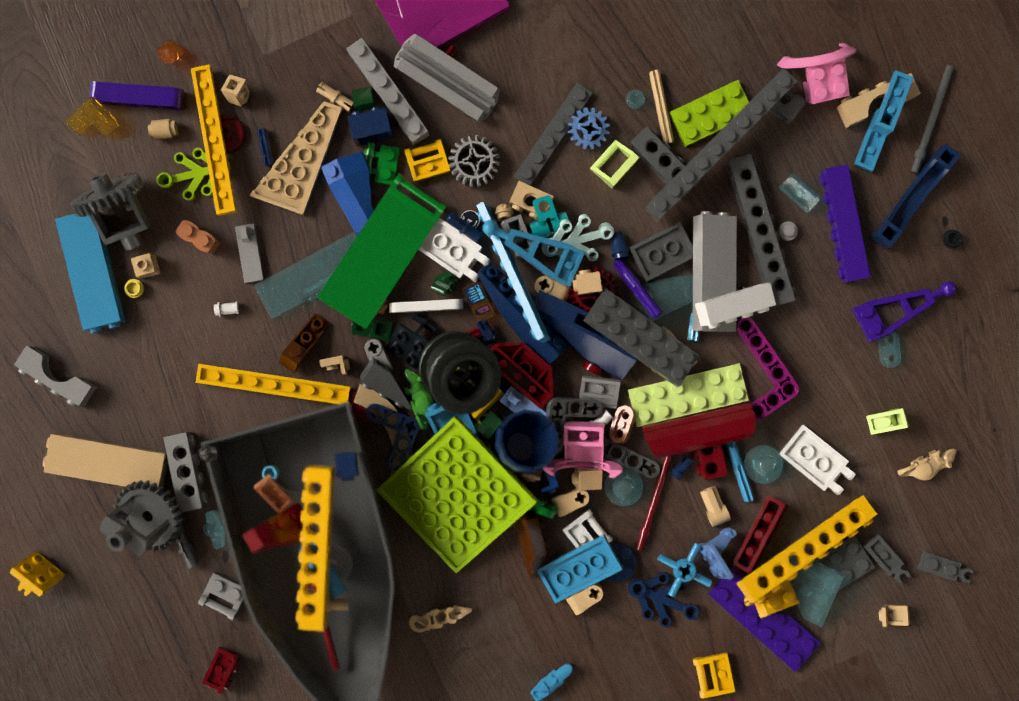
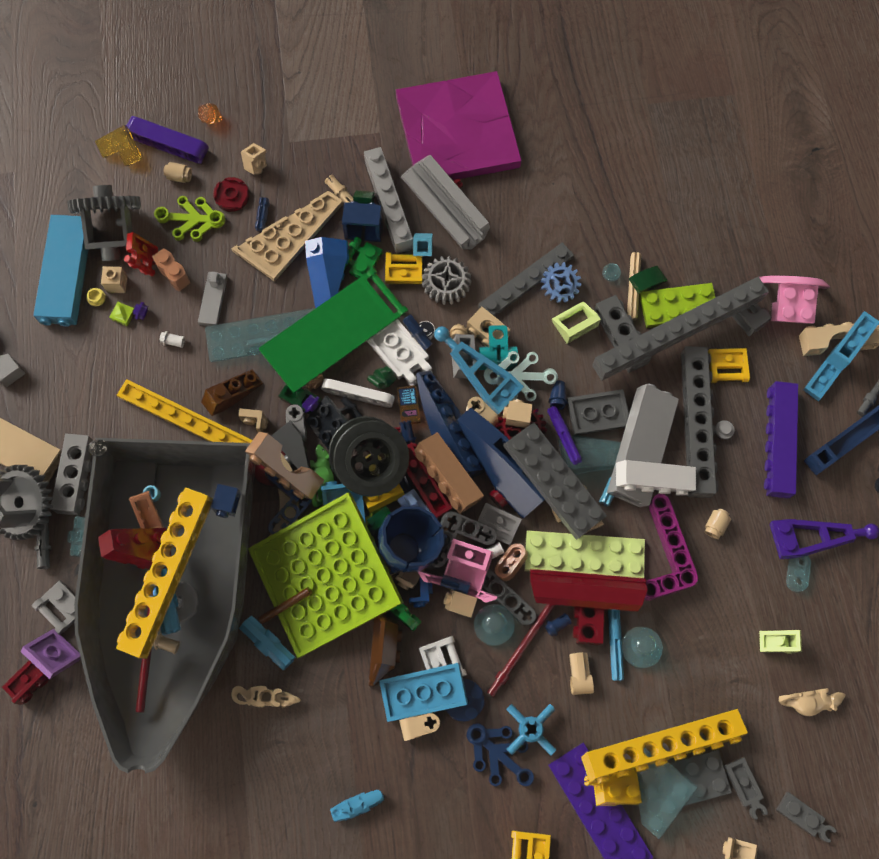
camera: 15 degrees right, 15 degrees down
(159, 228) = (140, 250): none -> red plate
(167, 297) = (122, 314): none -> lime tile
(184, 289) = (140, 311): none -> dark purple plate
(213, 140) = (218, 194): yellow plate -> none
(234, 641) = (51, 653): none -> medium lavender plate
(368, 405) = (267, 452): none -> medium nougat arch
(385, 333) = (310, 404): none -> dark purple plate
(424, 568) = (267, 642): none -> dark azure piece
(429, 532) = (285, 605): none -> reddish brown bar
(439, 131) = (422, 244): none -> medium azure brick
(515, 279) = (450, 391): plate -> none
(540, 364) = (448, 473): none -> medium nougat brick
(567, 503) = (432, 621): tan piece -> none
(578, 463) = (455, 584): none -> dark blue piece
(673, 96) = (647, 279): none -> dark green slope
(713, 549) = (564, 719): medium blue plate -> none
(760, 534) = (620, 715): dark red brick -> none
(773, 157) = (729, 360): none -> yellow plate
(800, 192) = (745, 398): clear light blue plate -> none
(803, 327) = (717, 523): none -> tan brick
(816, 460) = (698, 660): white tile -> none

